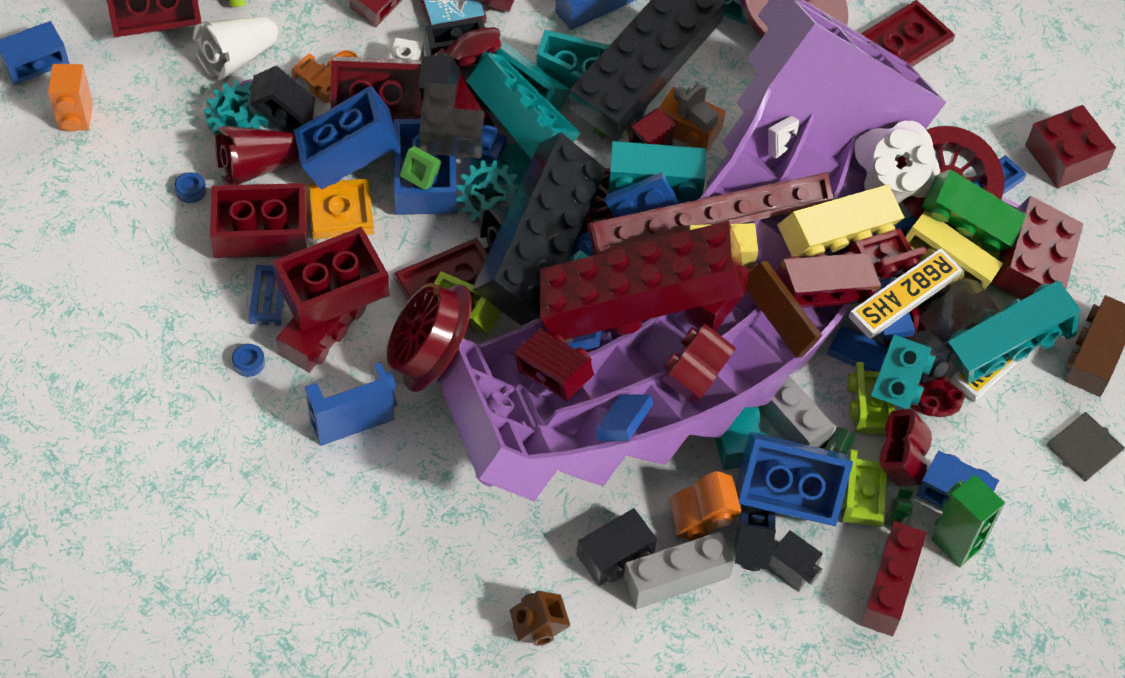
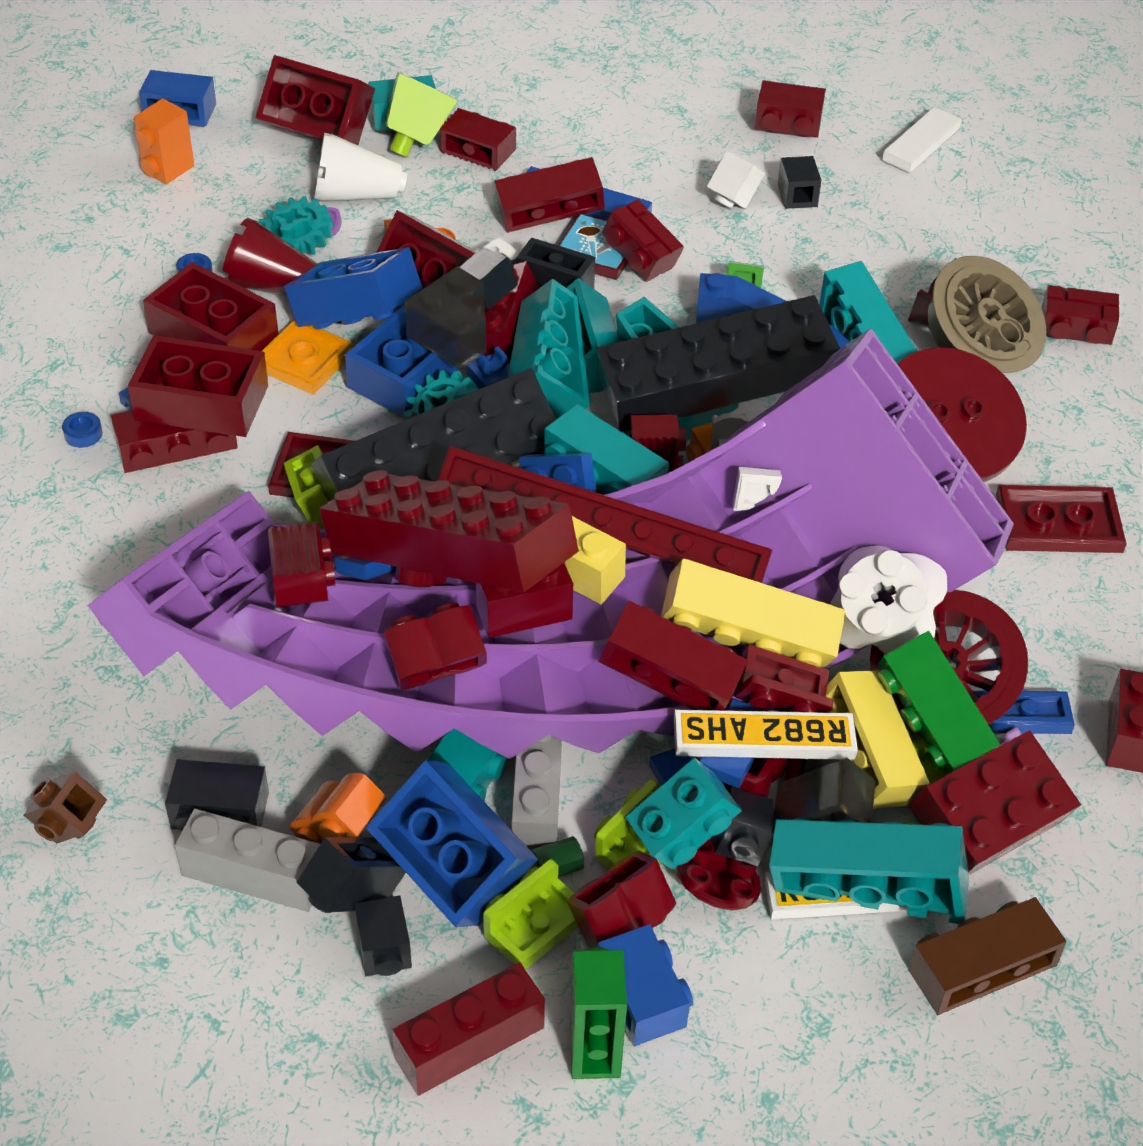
camera: 40 degrees right, 10 degrees down
(281, 99) = (335, 228): black brick -> none
(352, 409) = (109, 513): blue panel -> none
(420, 168) = (385, 341): bright green tile -> none
(428, 333) = (242, 469): dark red piece -> none
(473, 44) = (561, 265): dark red dish -> none
(624, 417) = (297, 645): blue tile -> none
(782, 310) = (585, 654): reddish brown tile -> none
(900, 507) = (549, 962): dark green bar -> none
(1085, 446) = (860, 1054): clear smoke piece -> none

